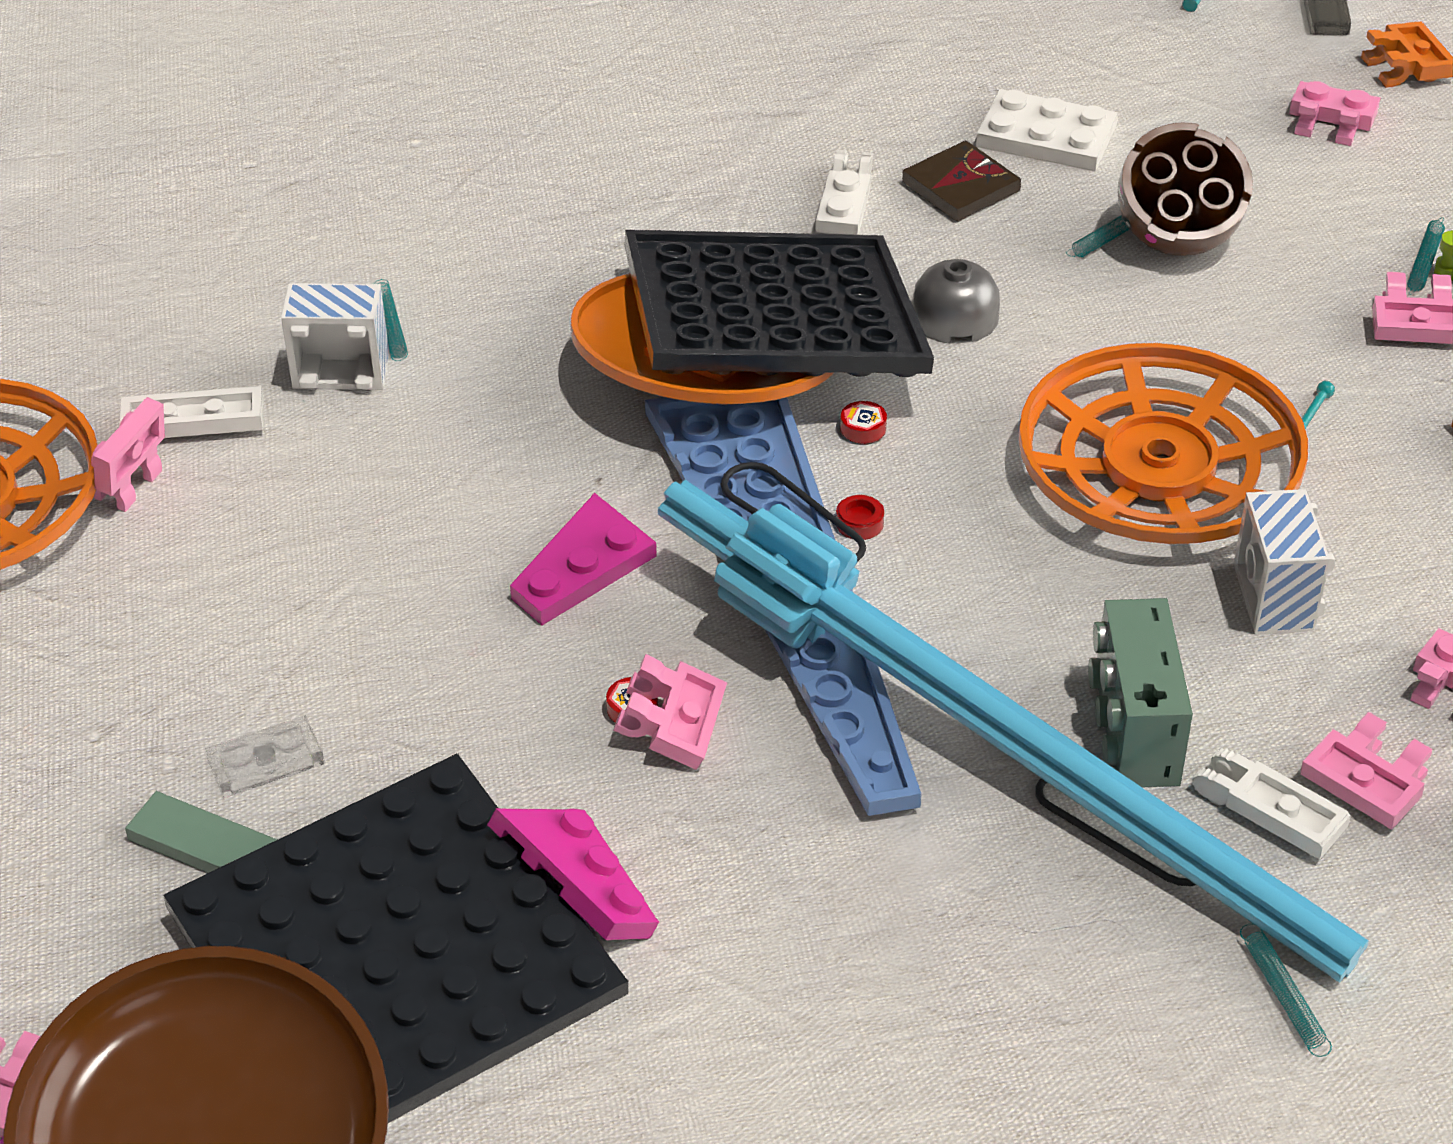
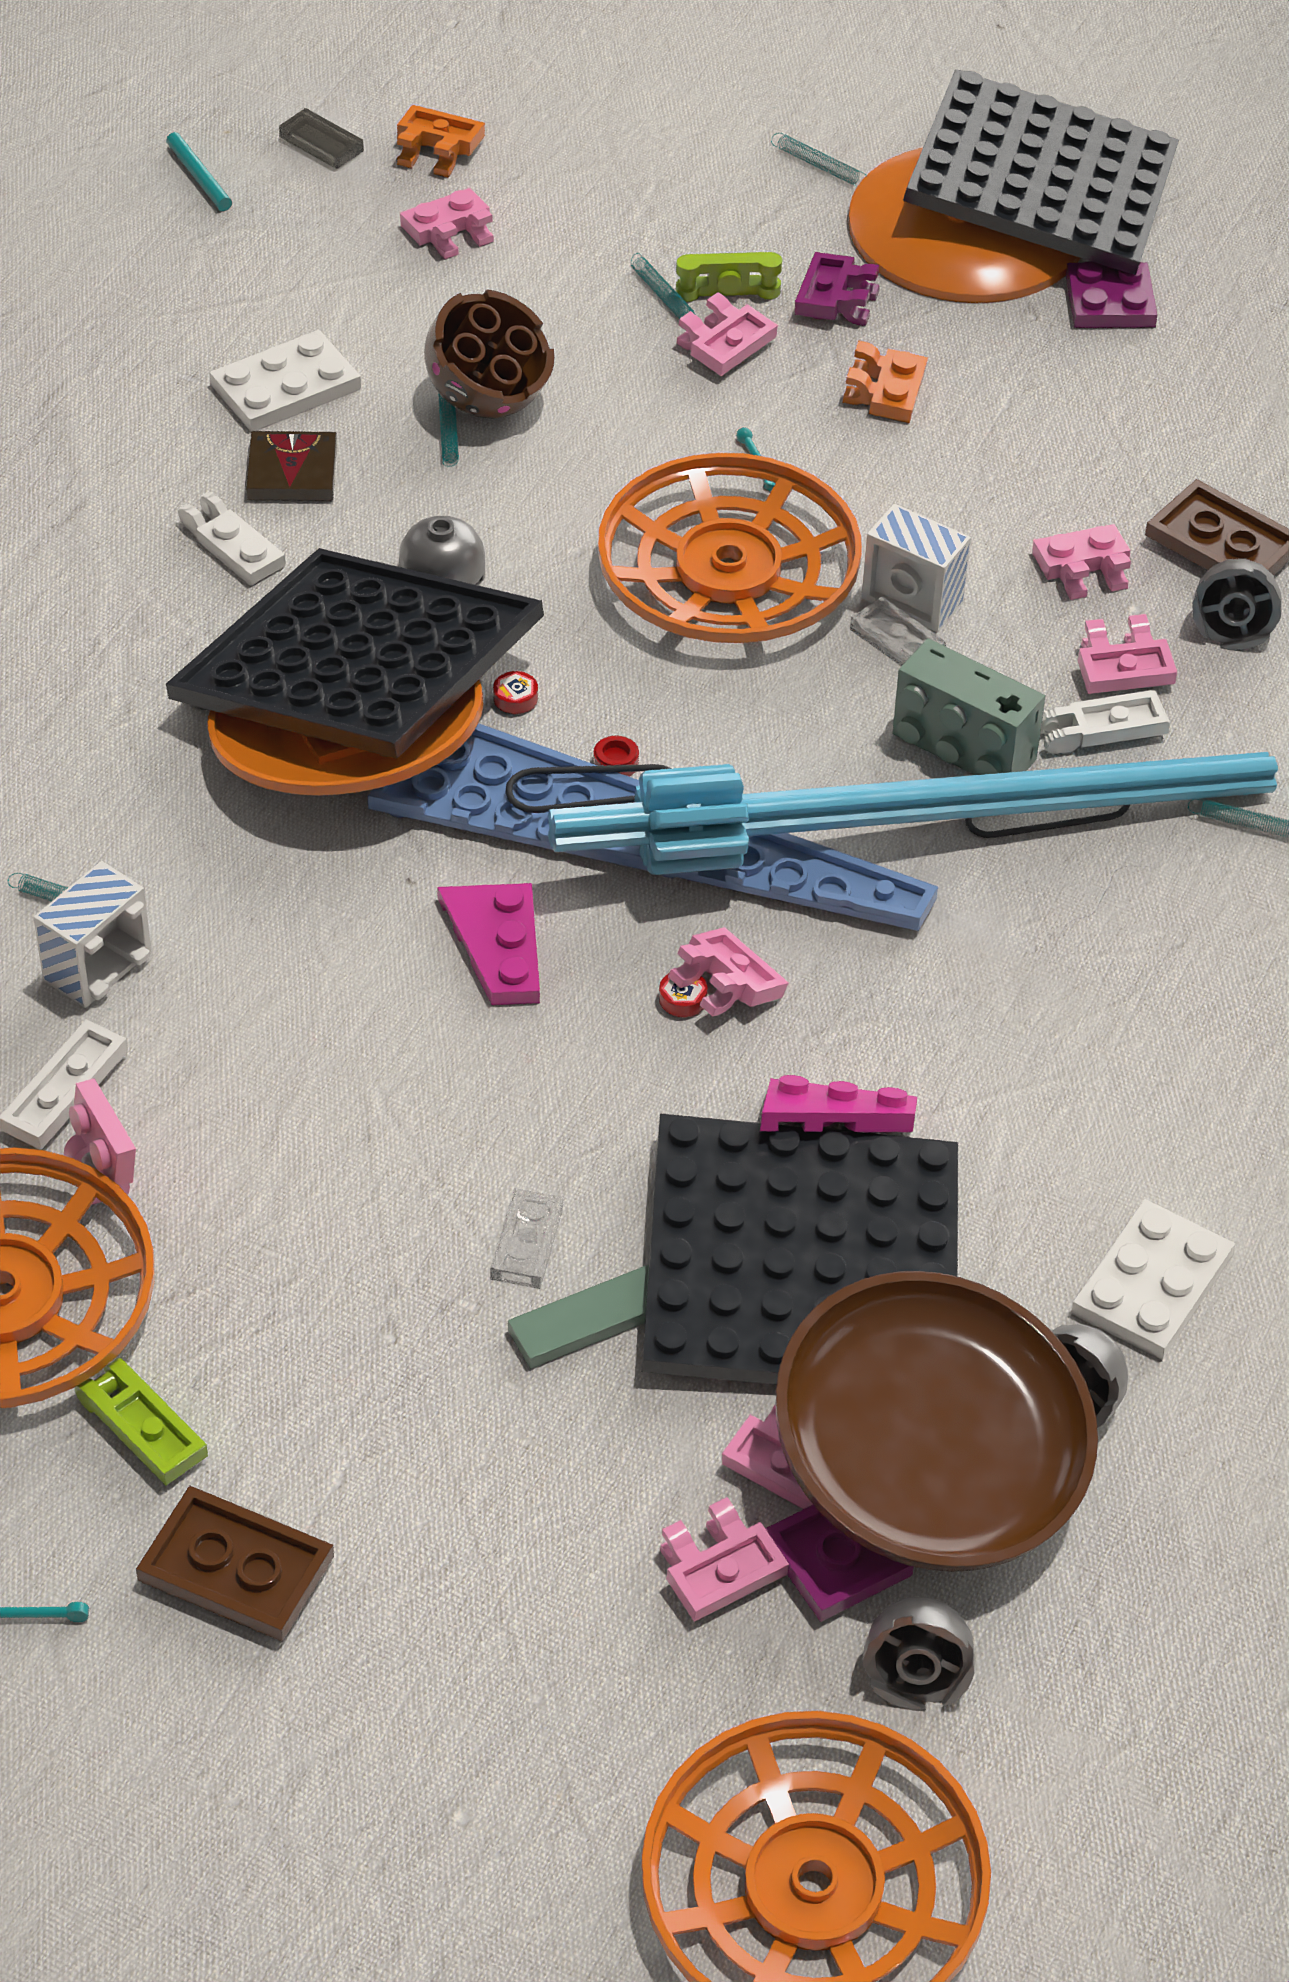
camera: 55 degrees left, 5 degrees up
(1204, 605) = (891, 630): none -> clear plate

